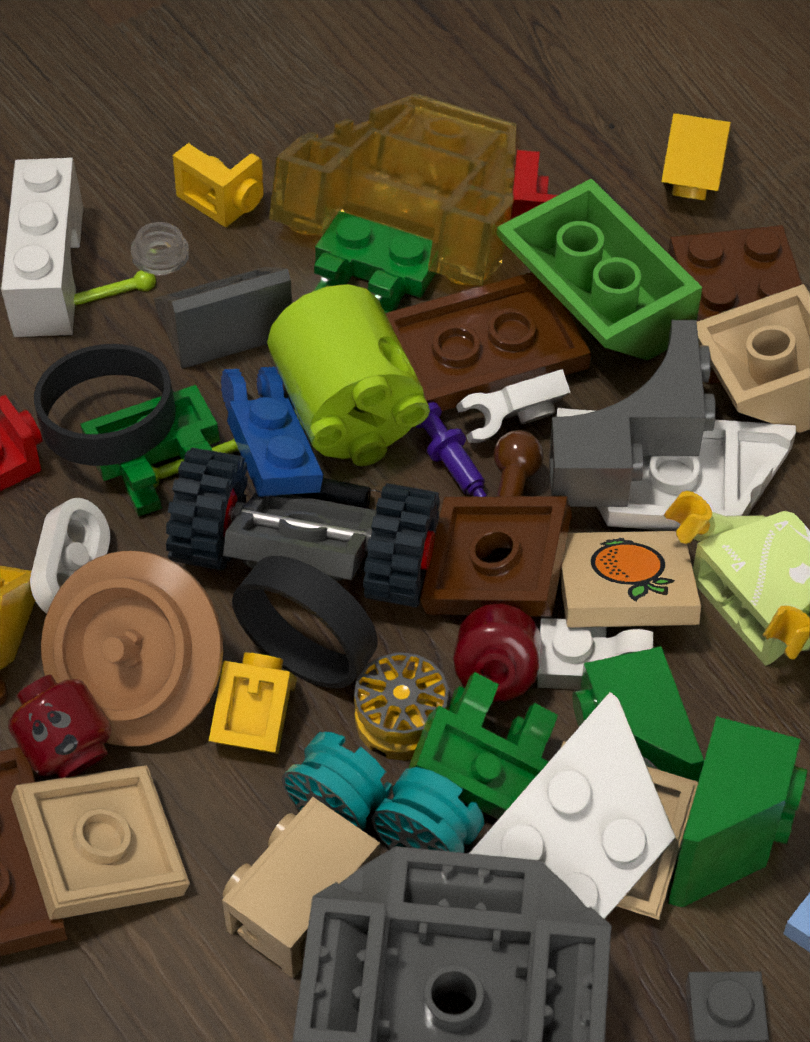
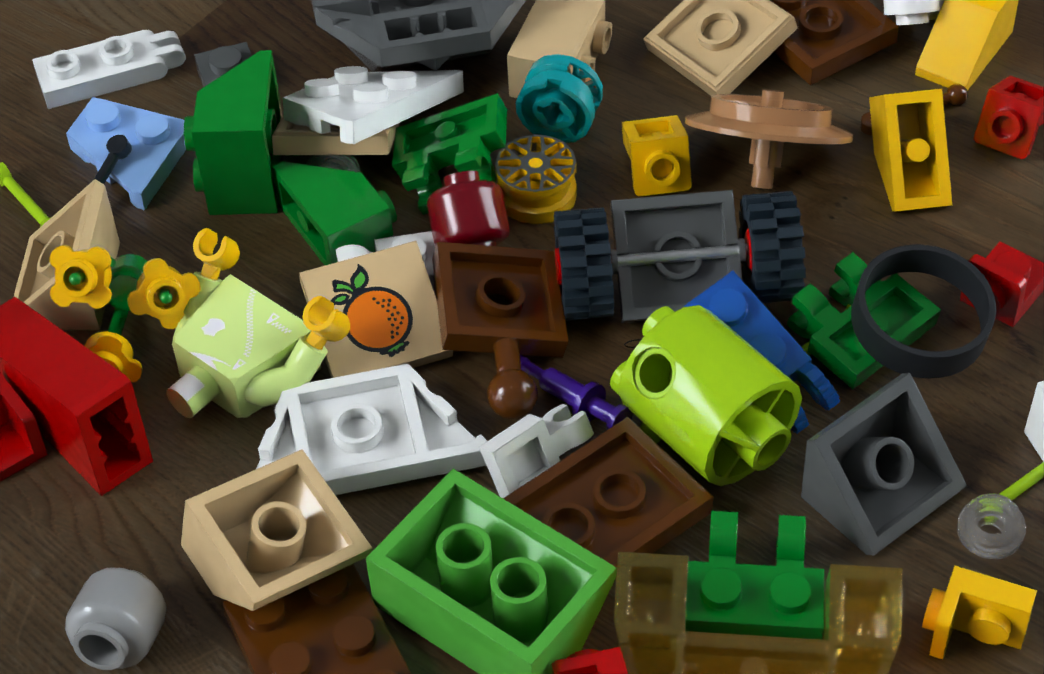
camera: 165 degrees right, 5 degrees down
(59, 727) = (789, 63): dark red head -> none
(60, 555) = (871, 205): white plate -> none
(325, 601) = (633, 126): black tyre -> none
(427, 814) = (470, 83): teal wheel -> none
(603, 450) = (425, 377): dark grey arch -> none

